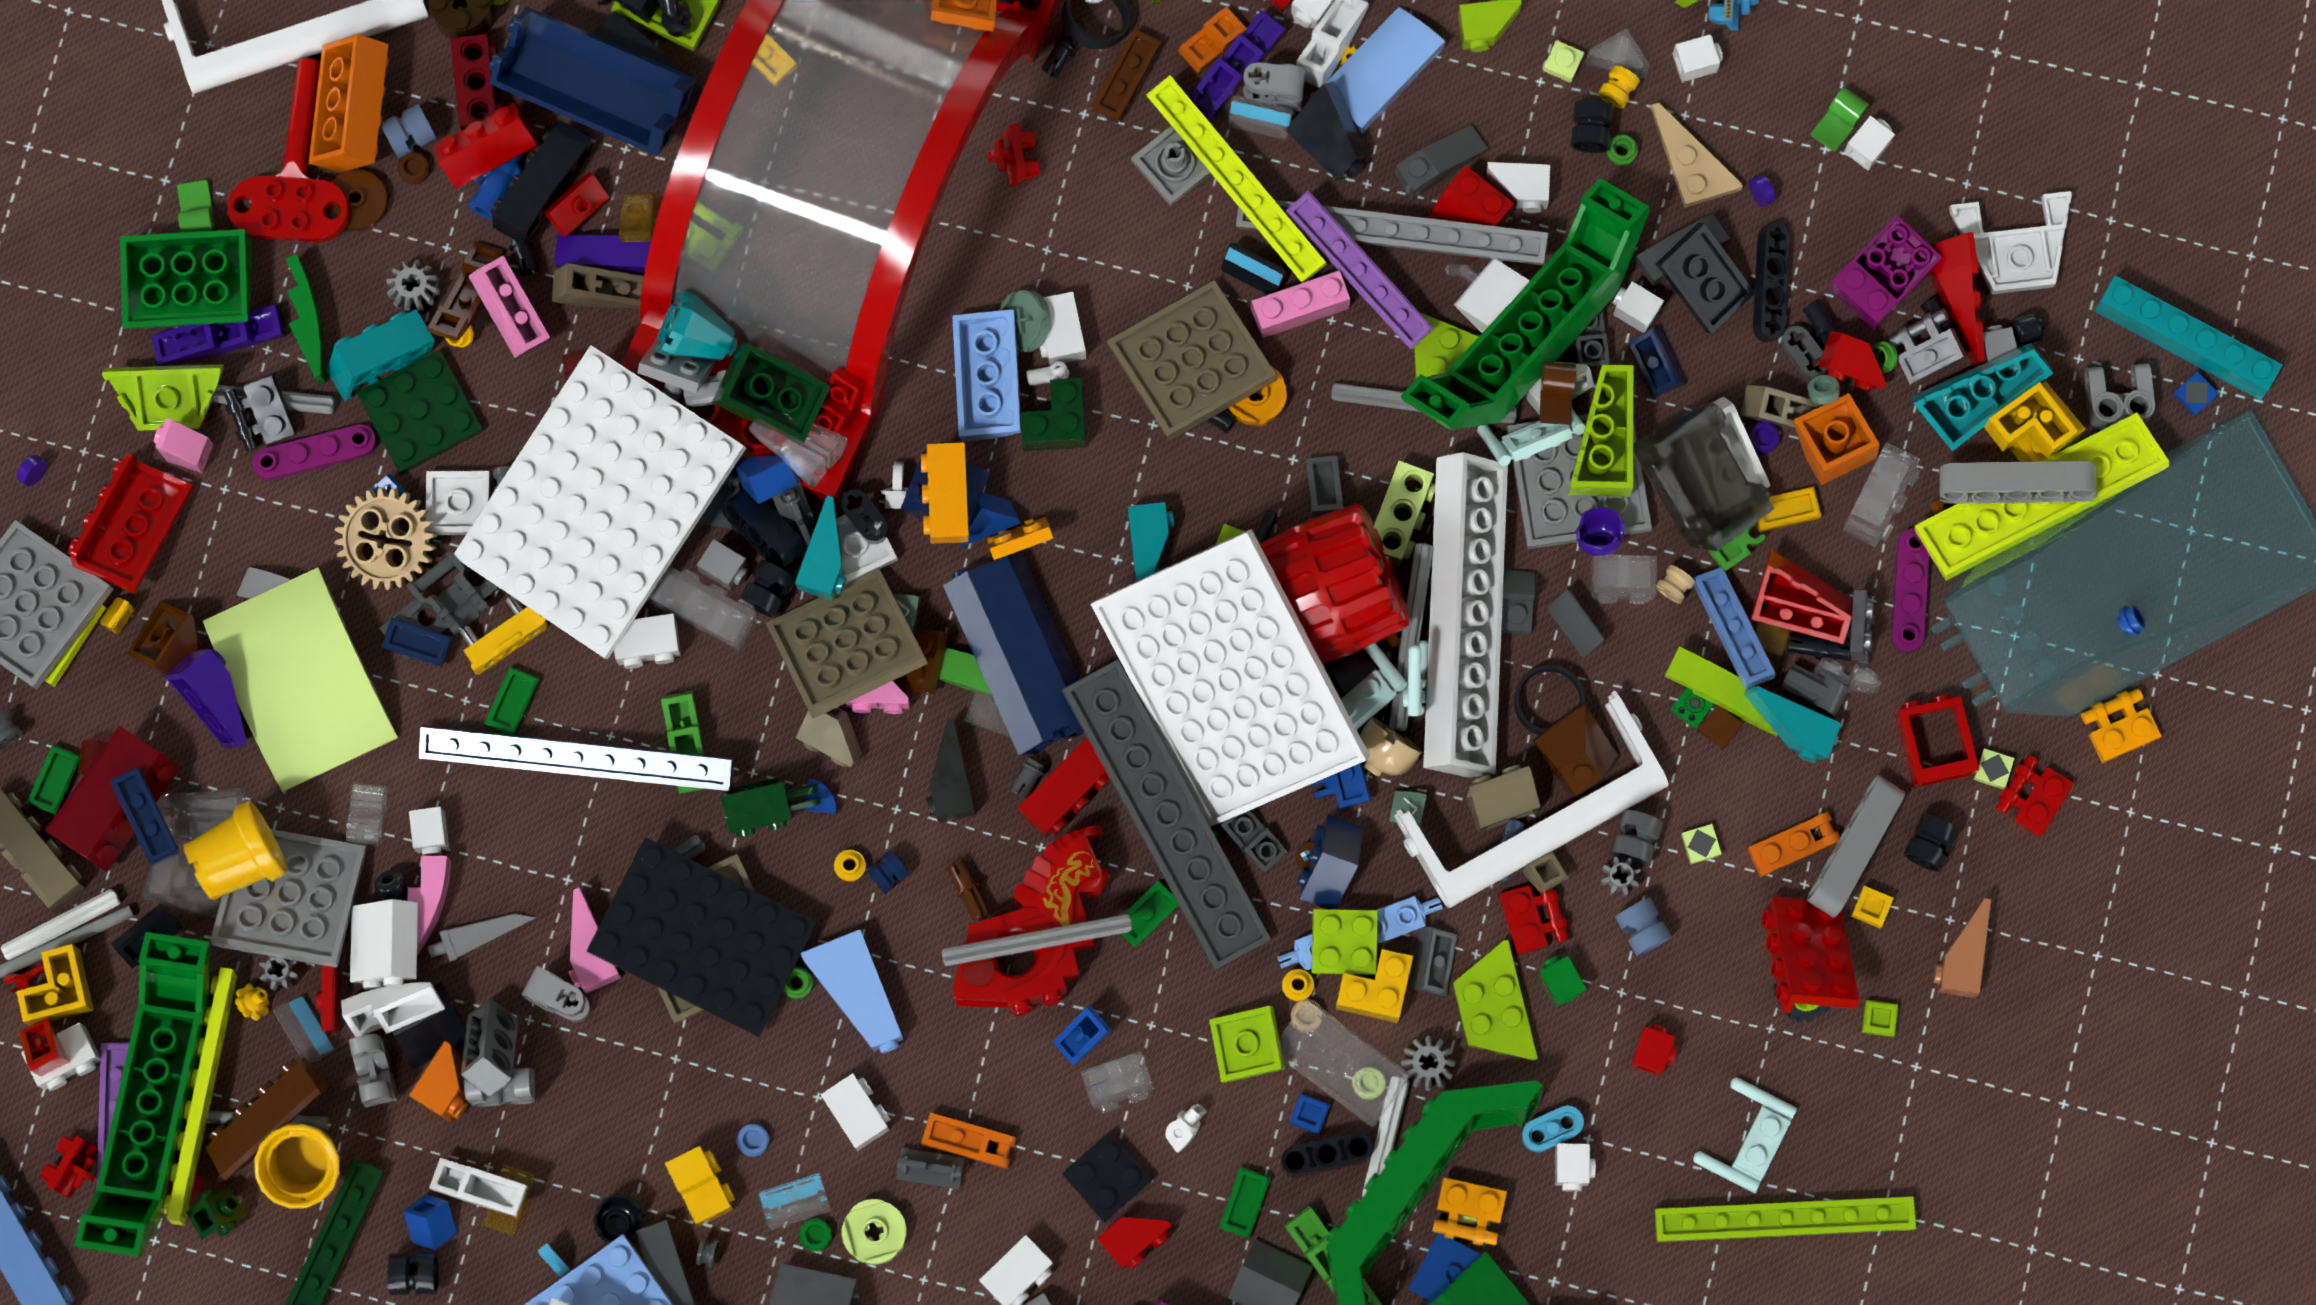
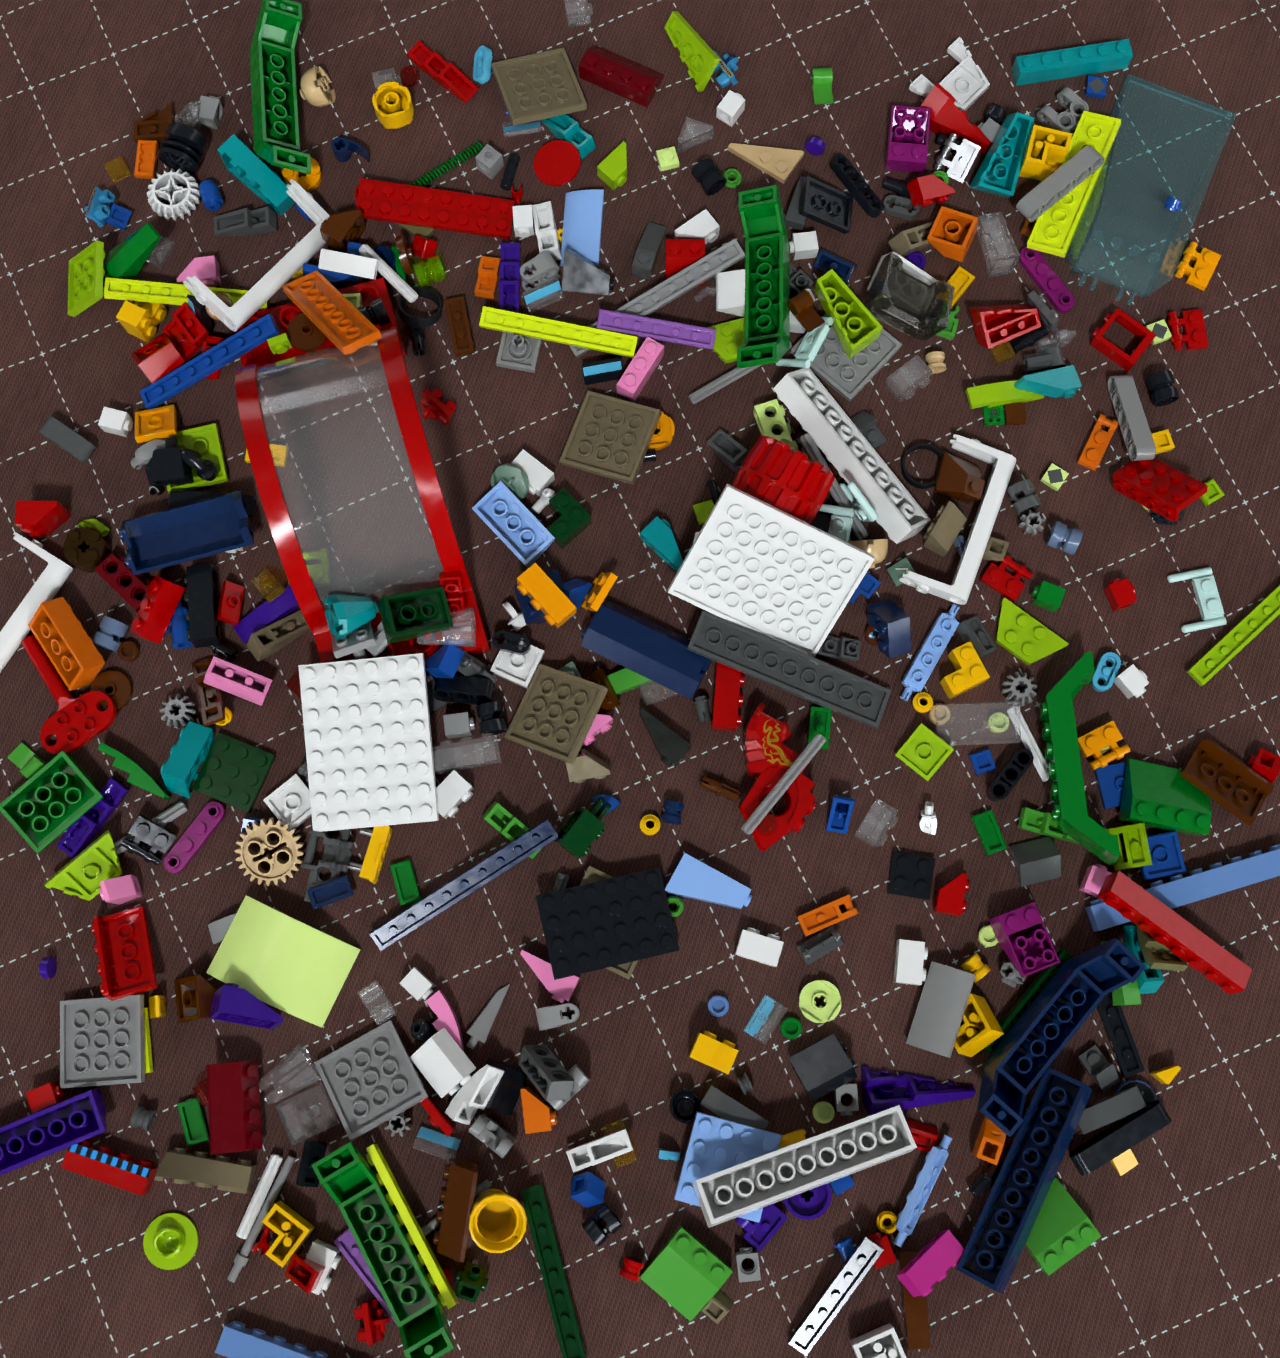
camera: 40 degrees left, 0 degrees up
(145, 816) = (260, 1102): dark blue tile -> none
(236, 853) = (326, 1082): yellow piece -> none
(252, 1002) = (397, 1151): yellow plant -> none
(823, 562) = (510, 681): teal slope -> none
(1344, 941) = (929, 661): lime plate -> none
(1576, 624) = (905, 418): dark grey slope -> none
(1600, 531) = (882, 362): dark purple hair -> none
(1618, 87) = (705, 148): yellow wheel -> none
(1733, 628) = (983, 360): medium blue plate -> none
(1823, 389) = (928, 213): sand green tile -> none
(1870, 142) = (846, 85): white brick -> none
(1963, 963) = (1224, 429): nougat slope -> none

